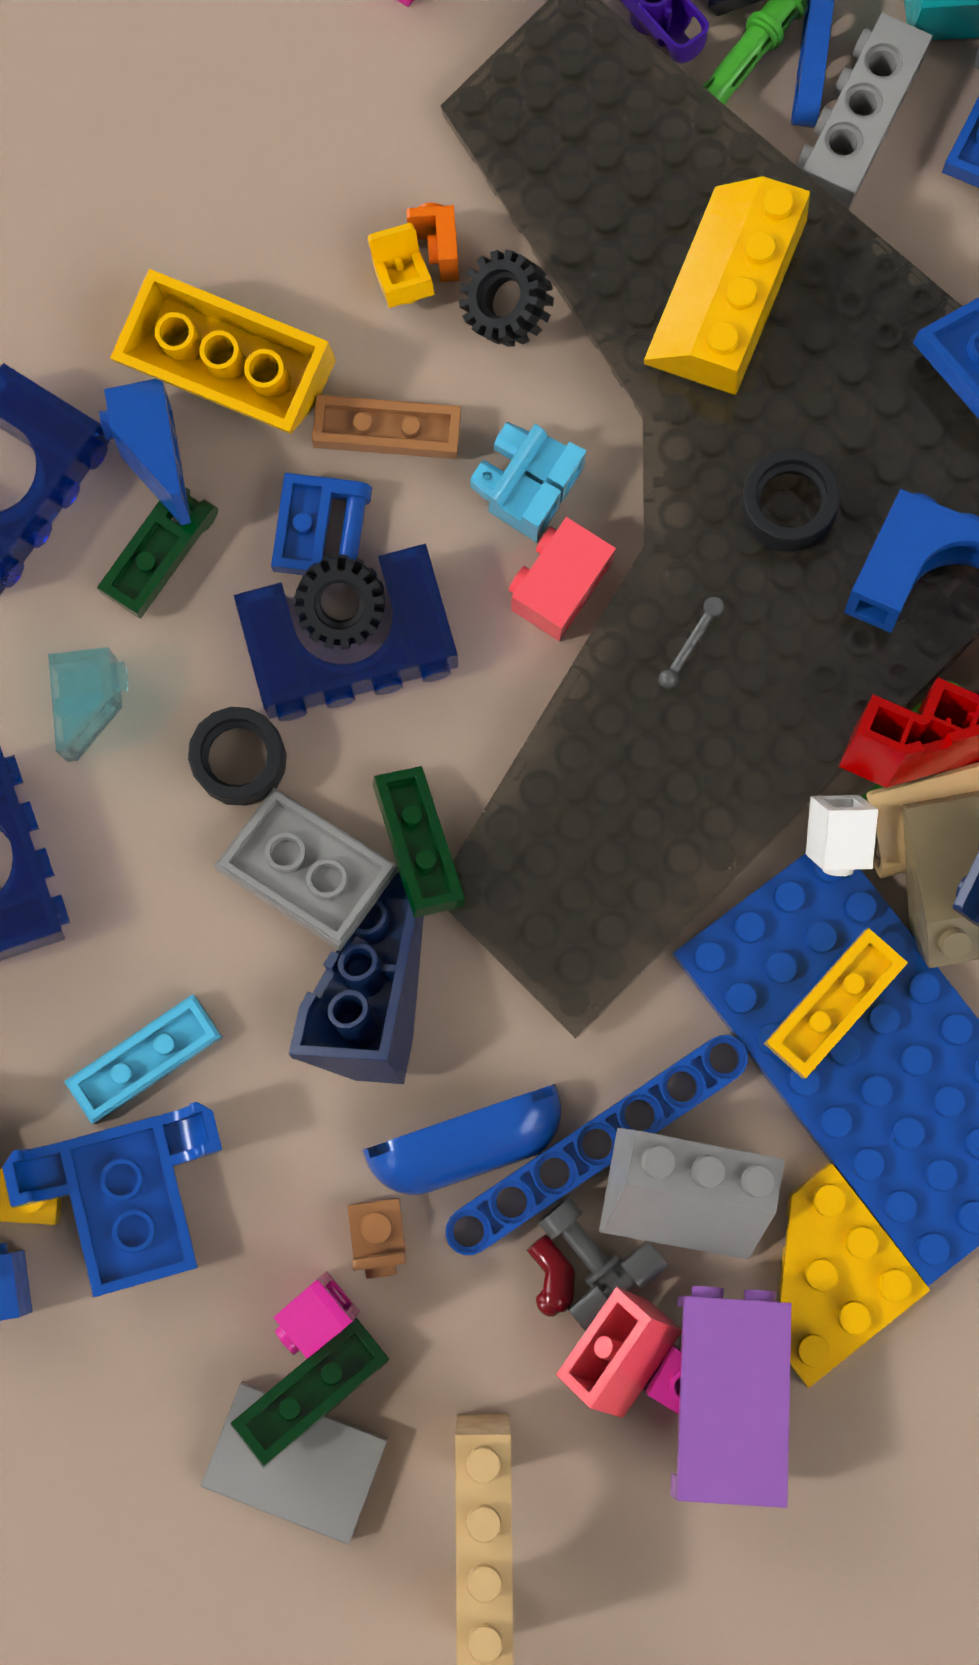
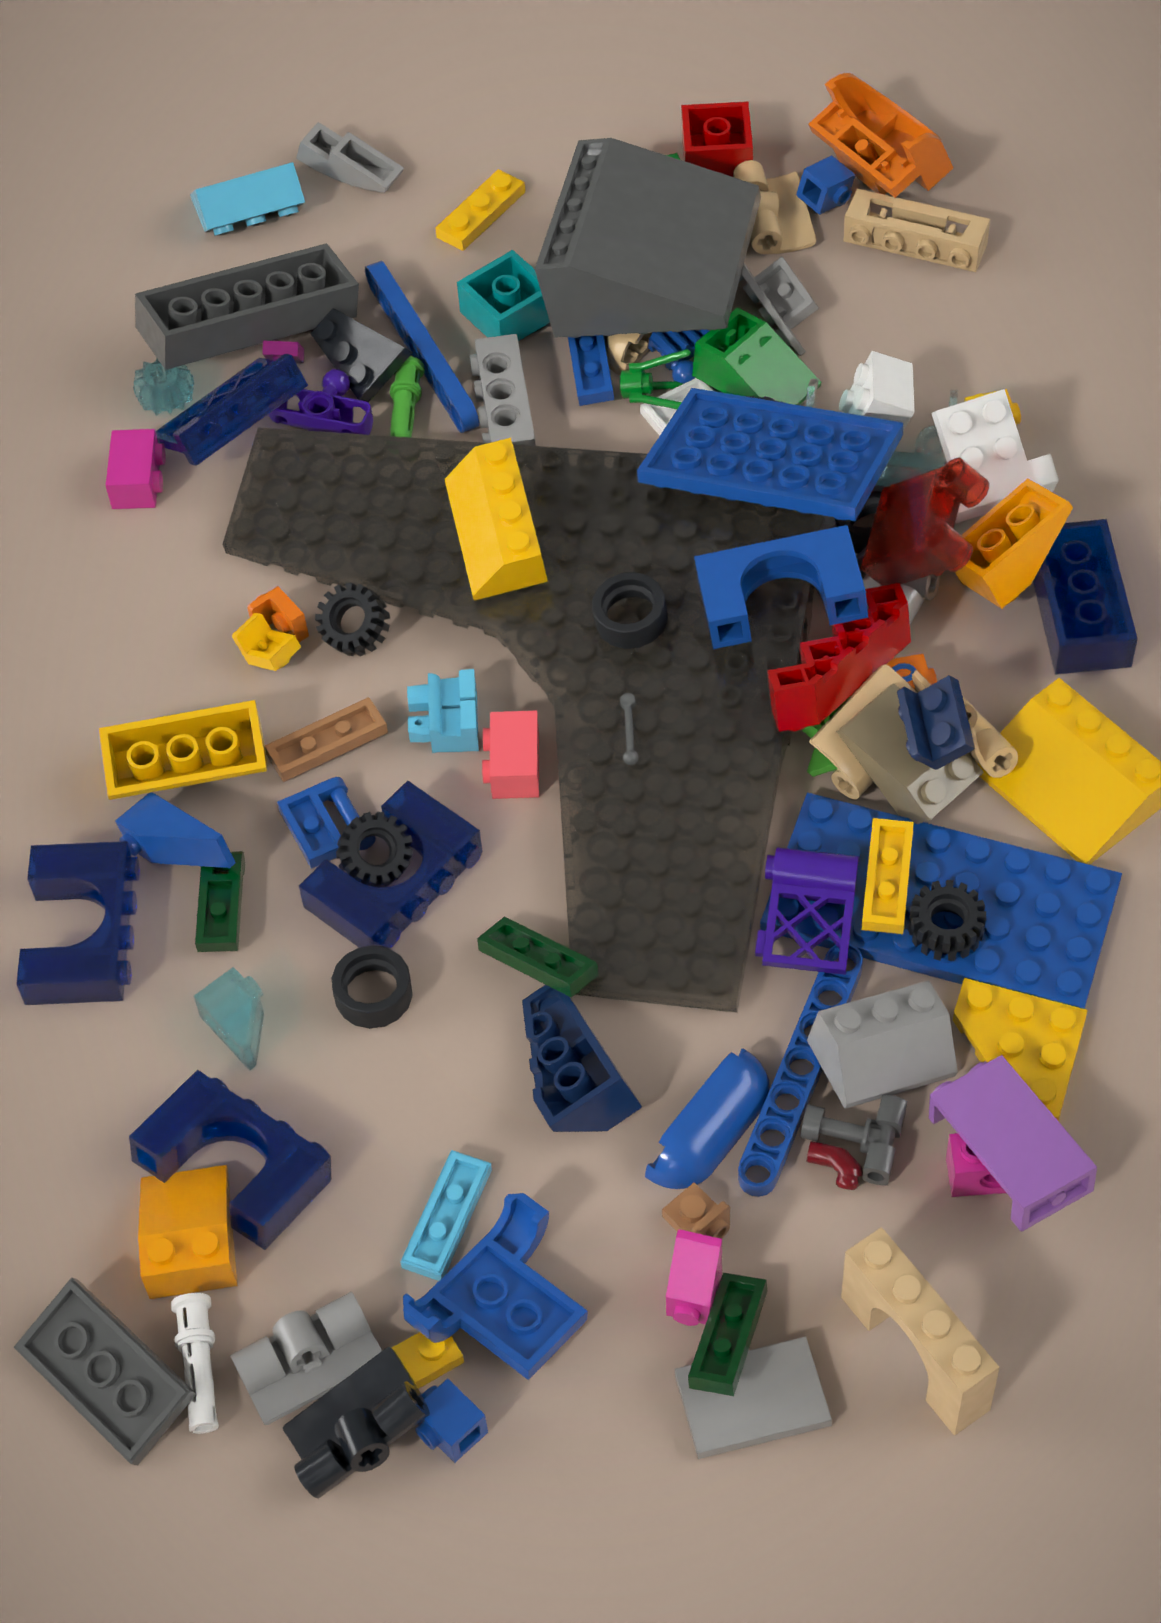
camera: 30 degrees left, 25 degrees down
(306, 868) = (472, 1023): light grey tile -> none
(619, 1353) = (916, 1166): coral brick -> none
(754, 951) = (807, 878): none -> dark purple piece
(841, 833) = (811, 776): white brick -> none
(889, 1095) = (947, 900): none -> black tyre

